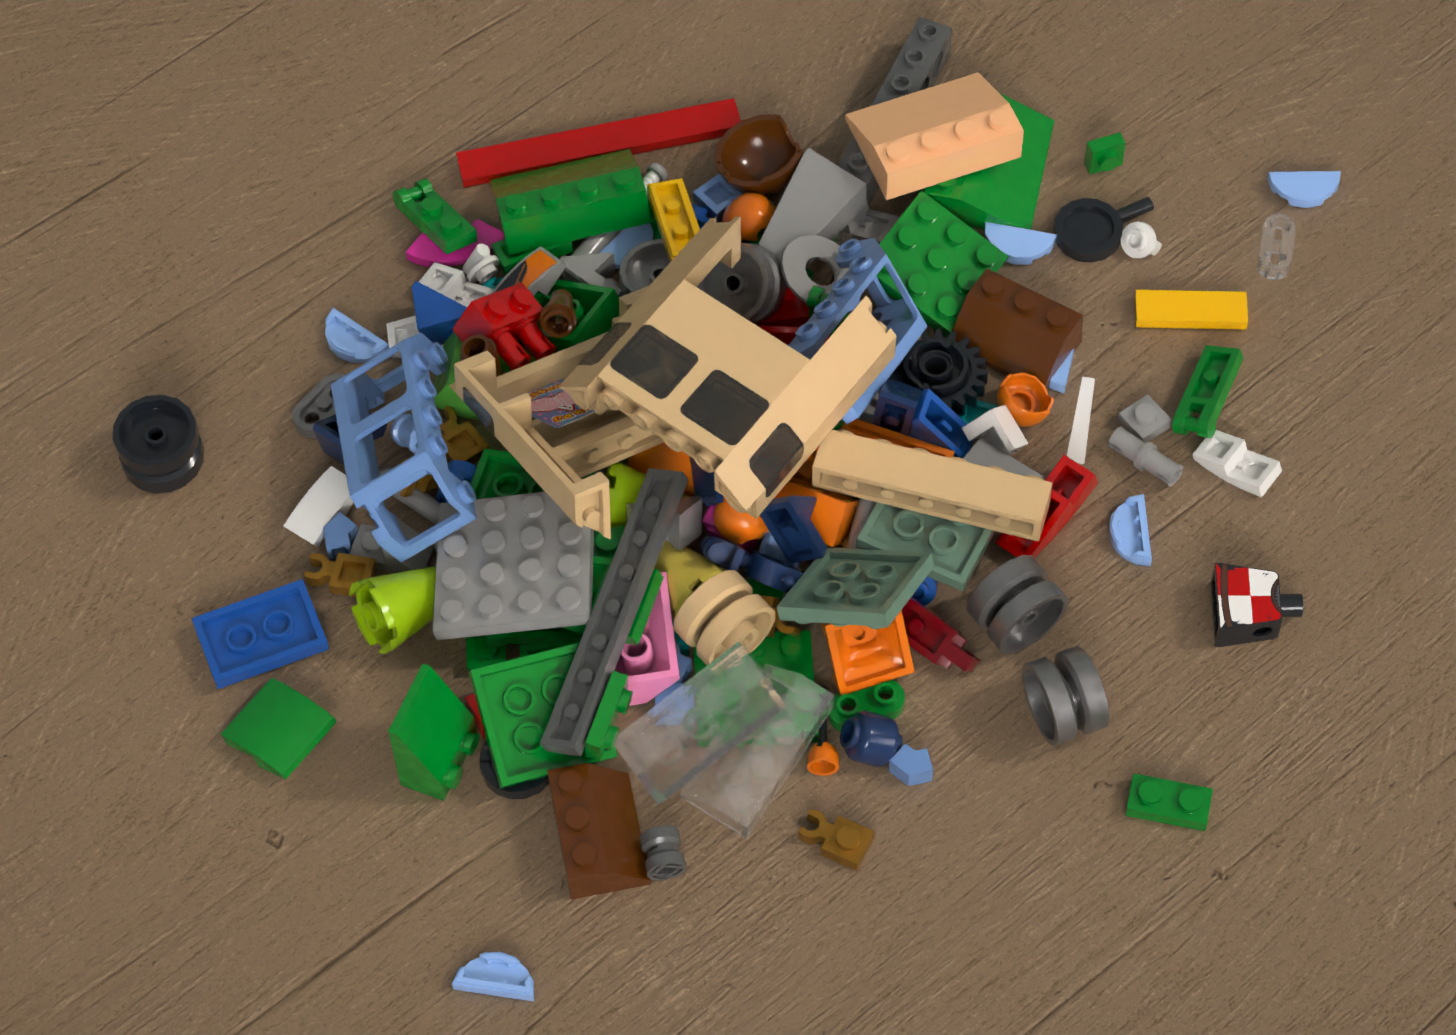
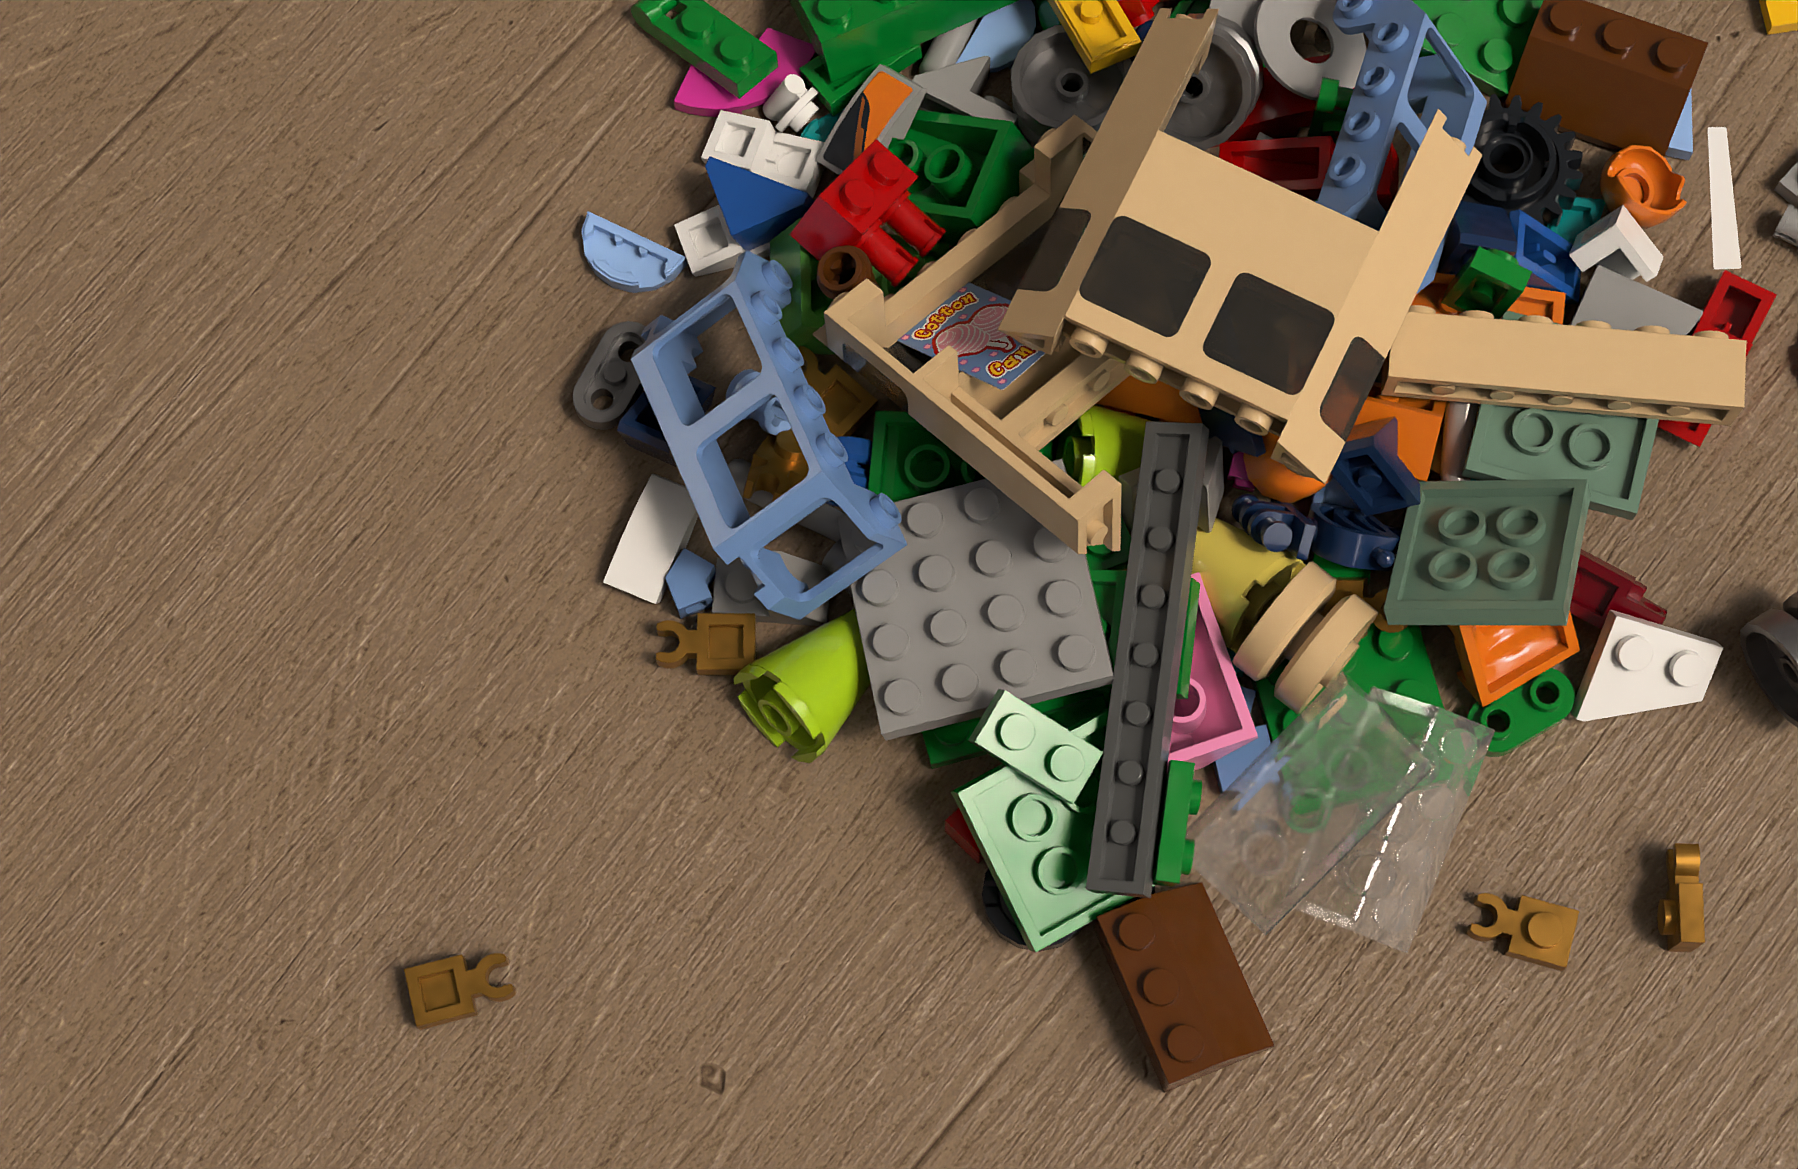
camera: 10 degrees left, 15 degrees up
(116, 750) = (447, 989): none -> pearl gold plate
(158, 443) = (357, 494): black wheel -> none
(260, 633) = (613, 762): blue plate -> none
(278, 728) = (678, 908): green slope -> none
(432, 736) = (920, 896): green slope -> none
(528, 650) = (1035, 746): none -> plate
(558, 315) = (942, 181): reddish brown cone -> none
(662, 852) = (1285, 1003): dark grey wheel -> none
(823, 756) = (1483, 805): orange hinge -> none
(870, 738) = (1544, 769): dark blue head -> none
(894, 422) = (1487, 283): none -> green plate
(911, 766) = (1608, 797): medium blue piece -> none
(942, 842) = (1682, 911): none -> pearl gold plate
(954, 689) = (1643, 669): none -> white wing
(1017, 604) = (1707, 519): flat silver wheel -> none

